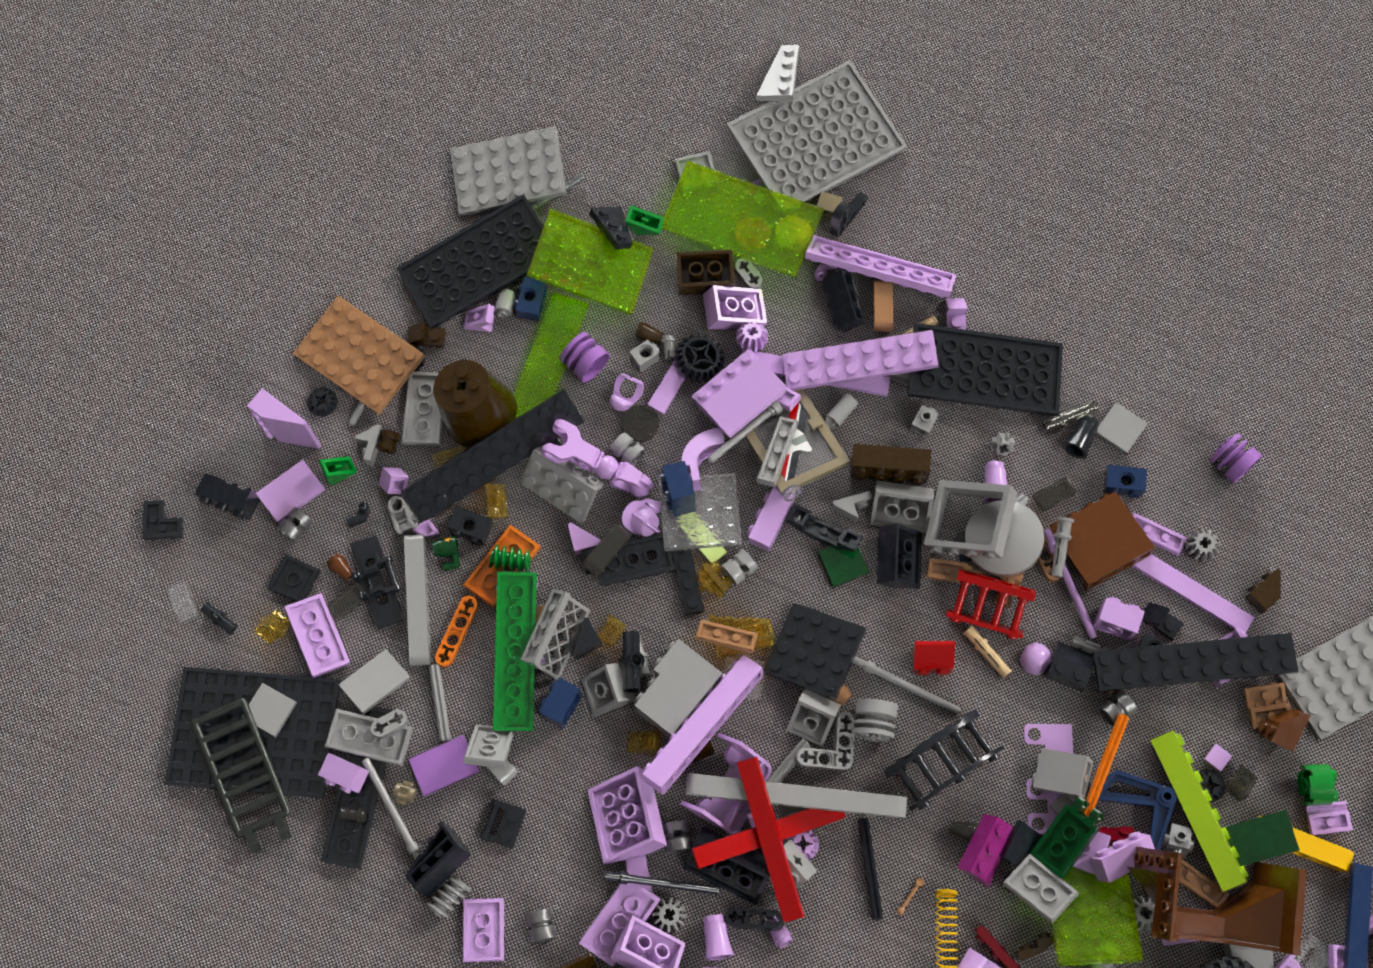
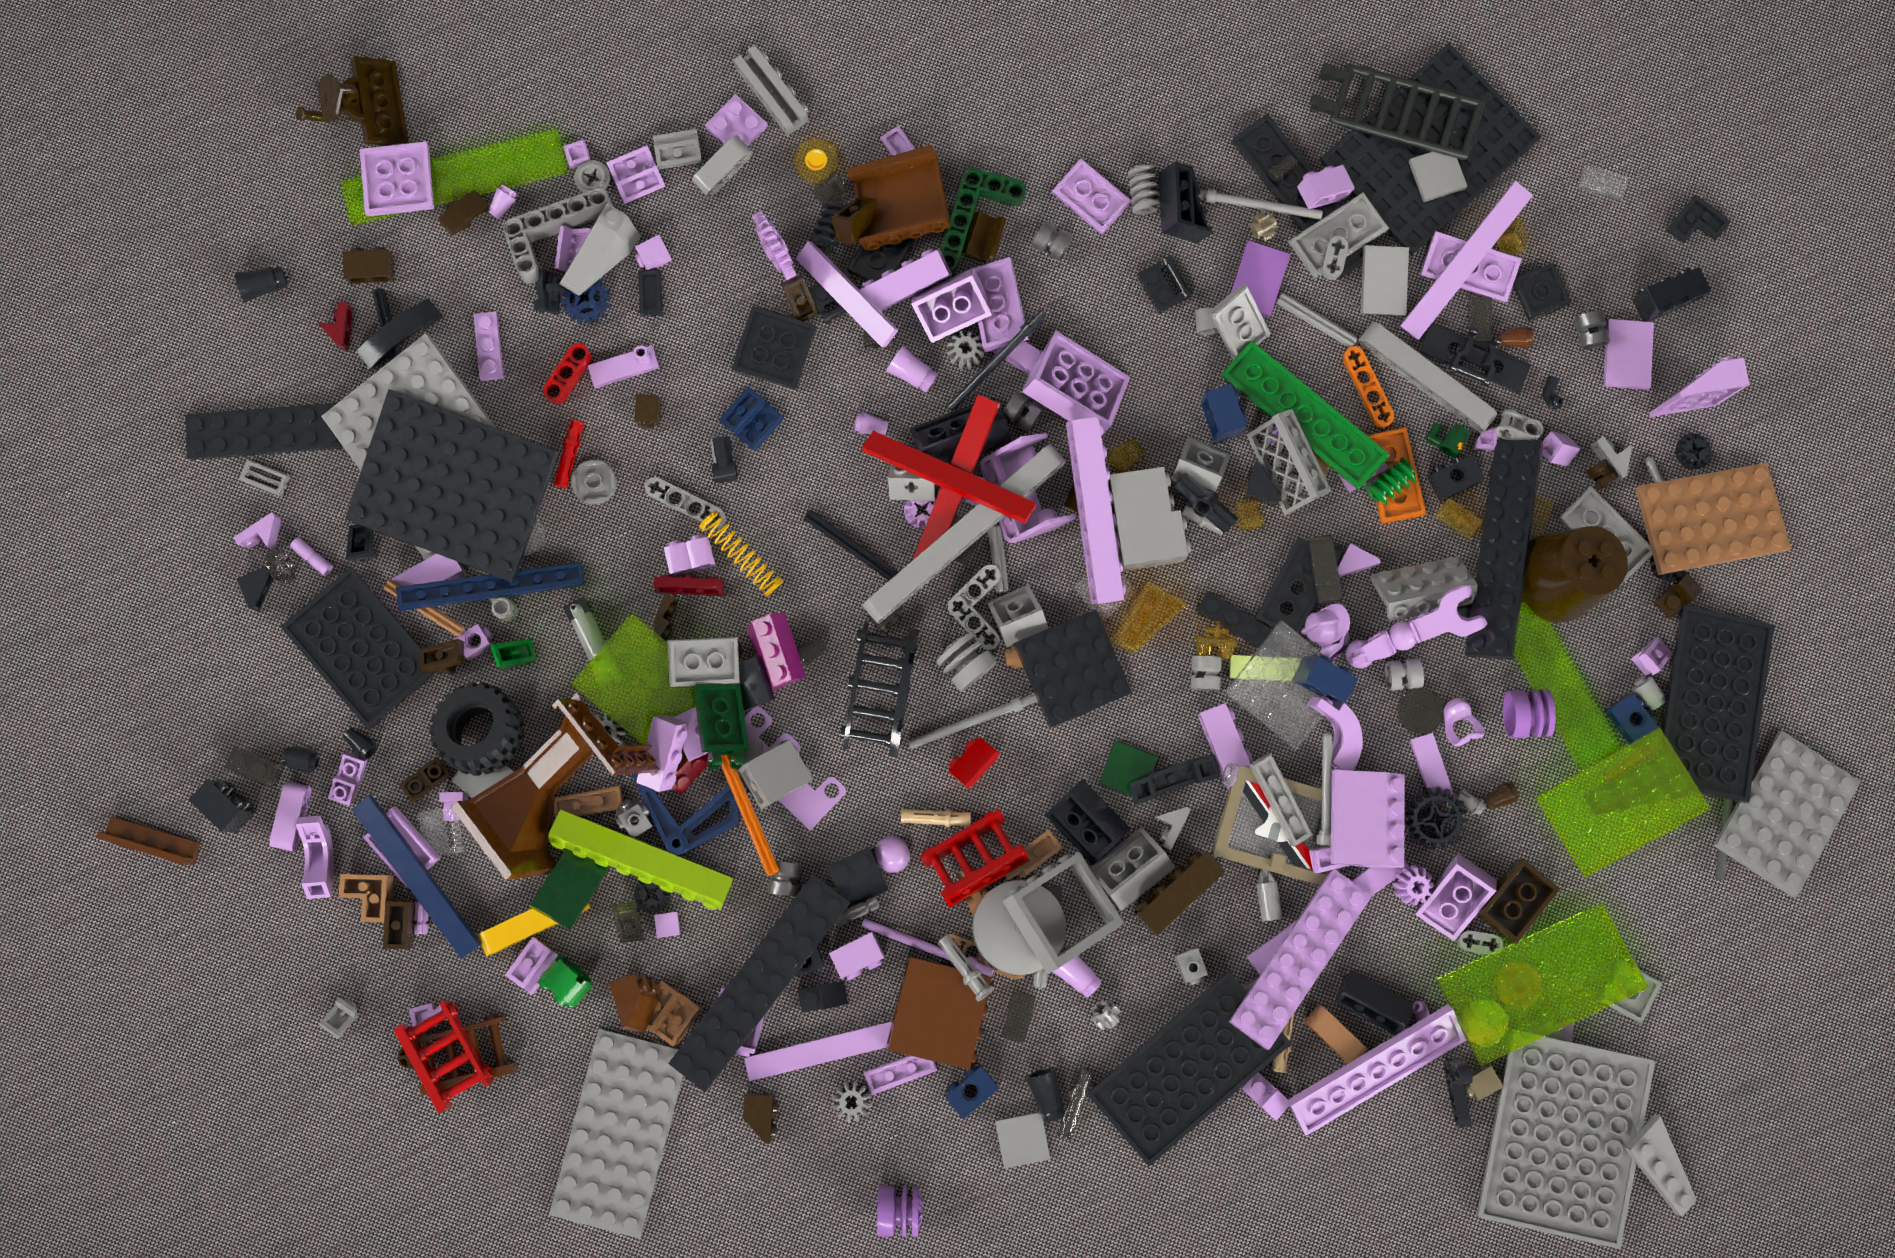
camera: 130 degrees right, 10 degrees up
(228, 625) = (1561, 200): black pin -> none
(316, 639) = (1466, 260): none -> lavender tile
(337, 469) = (1614, 408): green slope -> none
(613, 225) = (1641, 856): black wing -> none
(641, 362) = (1489, 765): light grey brick -> none
(643, 222) = (1621, 891): green slope -> none
(726, 636) = (1153, 600): medium nougat tile -> none
(739, 923) = (913, 409): black beam -> none
(919, 882) = (802, 576): medium nougat hinge -> none

